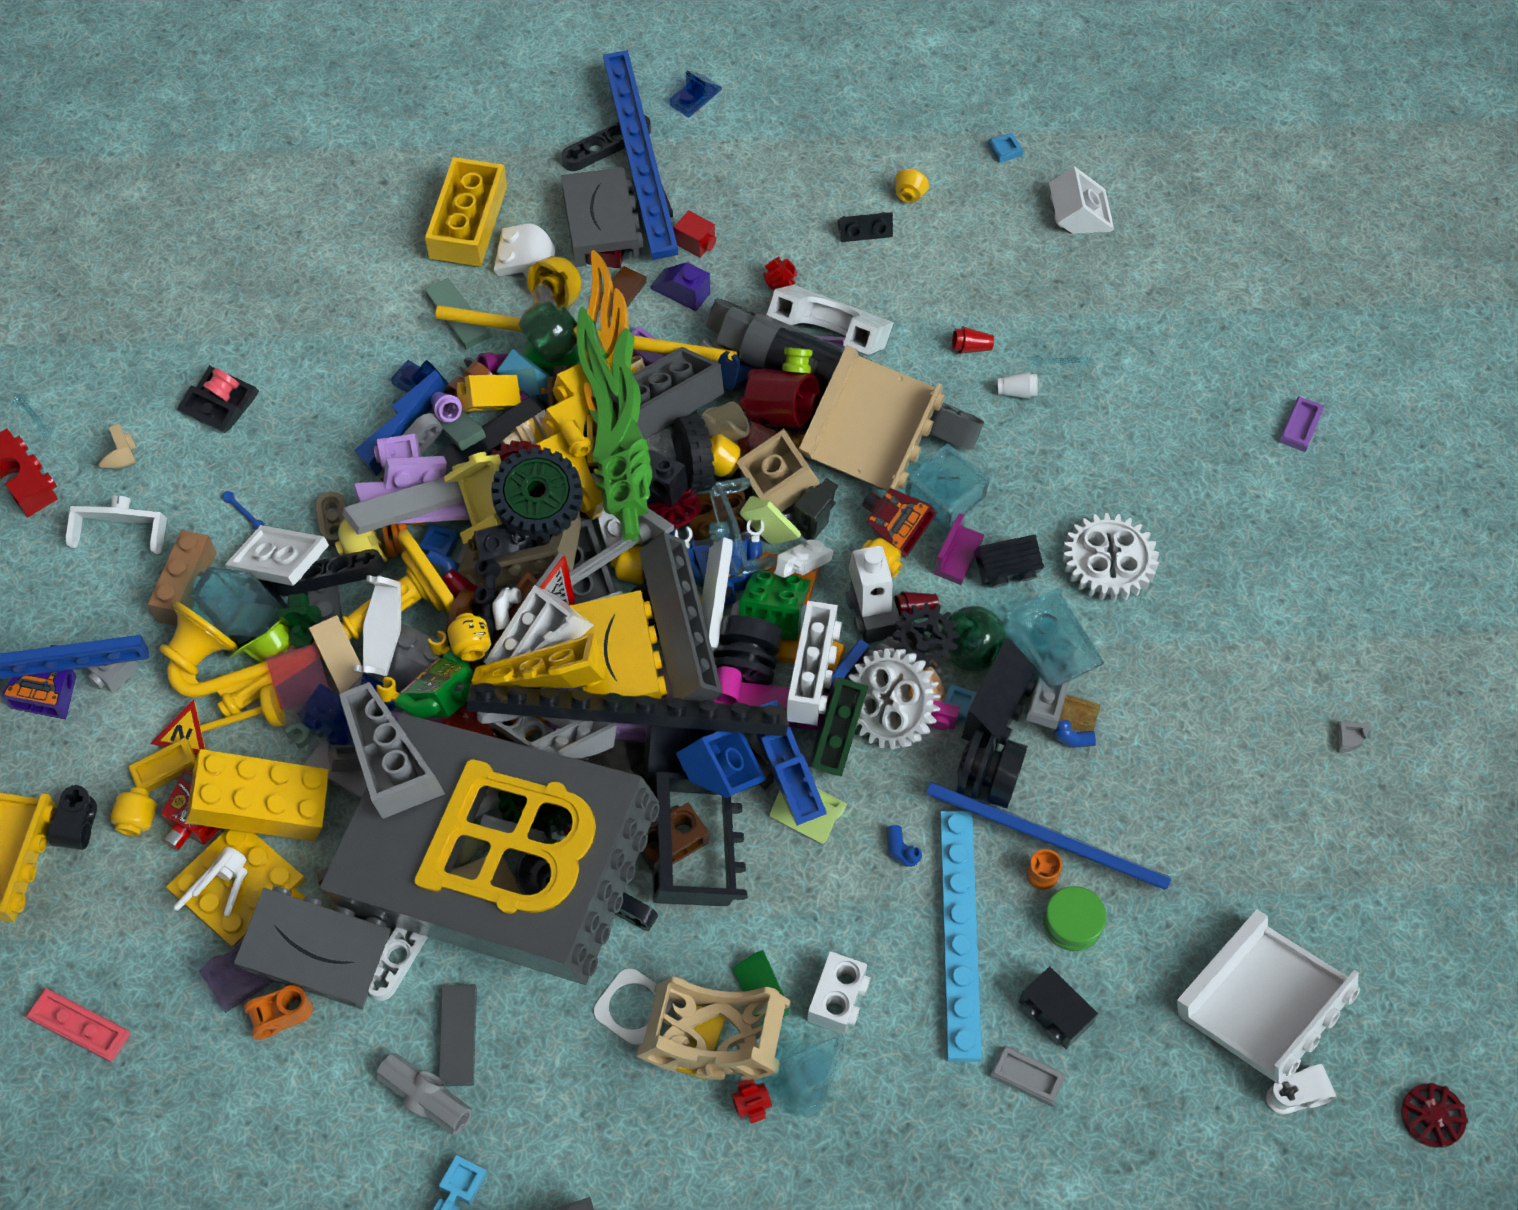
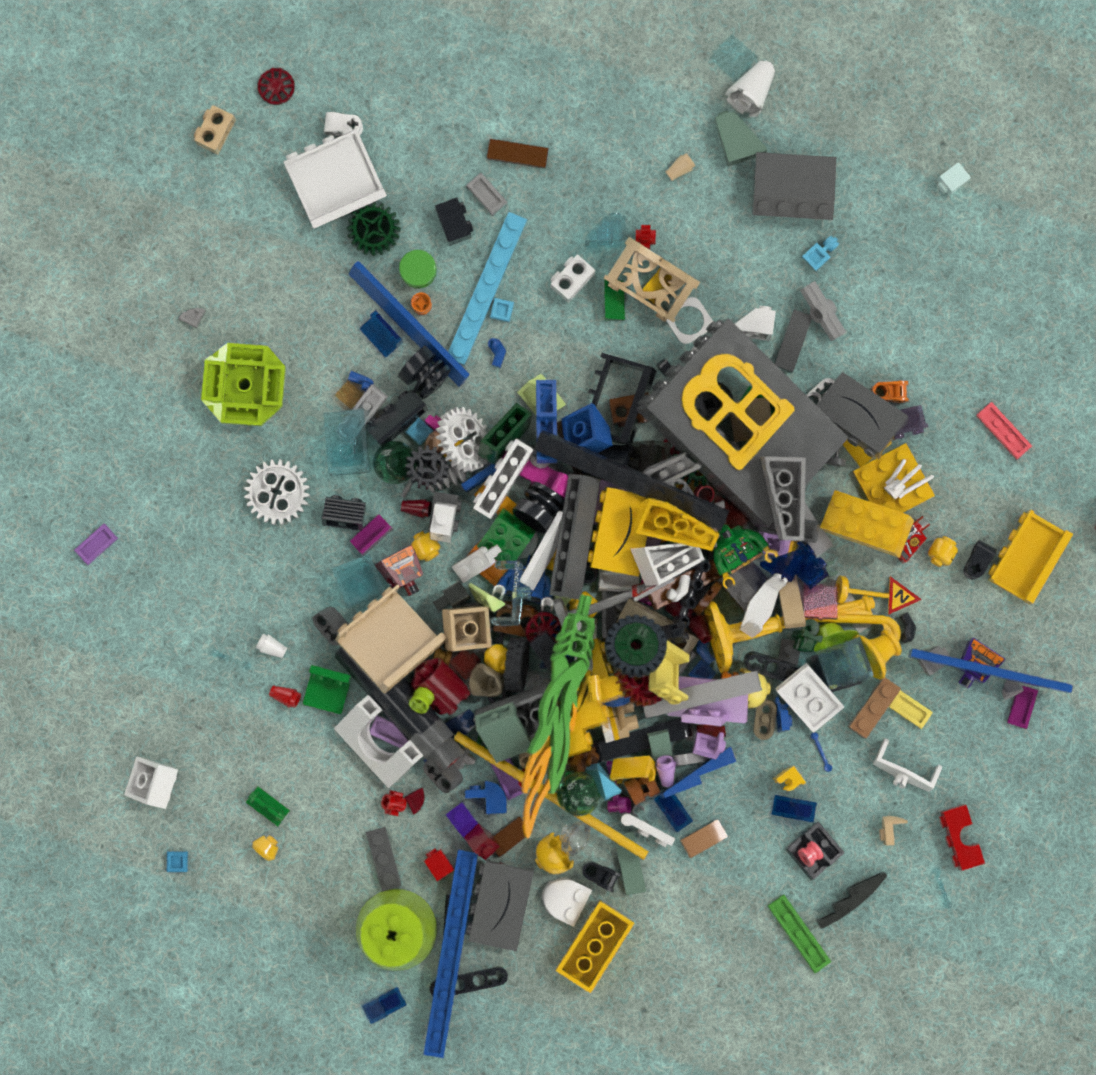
camera: 155 degrees left, 25 degrees up
(126, 600) = (910, 709): none -> light yellow tile
(146, 364) = (857, 895): none -> pearl dark grey slope
(157, 697) = (910, 628): none -> black arm
(163, 765) = (917, 578): yellow tile -> none
(212, 310) = (799, 933): none -> bright green tile
(257, 431) = (794, 808): none -> clear blue slope
(275, 455) = (793, 778): none -> yellow hinge
(305, 522) = (783, 720): none -> blue plate
(367, 365) = (703, 838): none -> medium nougat slope
(444, 349) = (646, 829): none -> white plate
(469, 637) = (709, 571): yellow head -> none
(491, 286) = (602, 875): none -> black piece
(525, 1022) = (758, 323): none -> white slope
(651, 264) = (481, 841): none -> dark red brick
(664, 322) = (494, 794): none -> blue brick
(680, 358) = (503, 732): none -> sand green panel
(715, 141) = (410, 918): none -> lime cone
(755, 292) = (415, 800): none -> dark red tile
(765, 224) = (383, 859): none -> dark grey plate
(865, 227) = (305, 823): black hinge -> none
(922, 911) = (502, 310): none -> medium azure tile
(926, 362) = (327, 689): none -> green bracket
(937, 230) = (267, 806): none -> green hinge
(1010, 1159) = (517, 153): none -> reddish brown tile
(1078, 810) = (381, 334): none -> clear blue panel
(1142, 947) = (387, 239): none -> dark green gear
(1250, 642) = (225, 373): none -> lime piece
(1475, 1003) = (219, 131): none -> tan brick

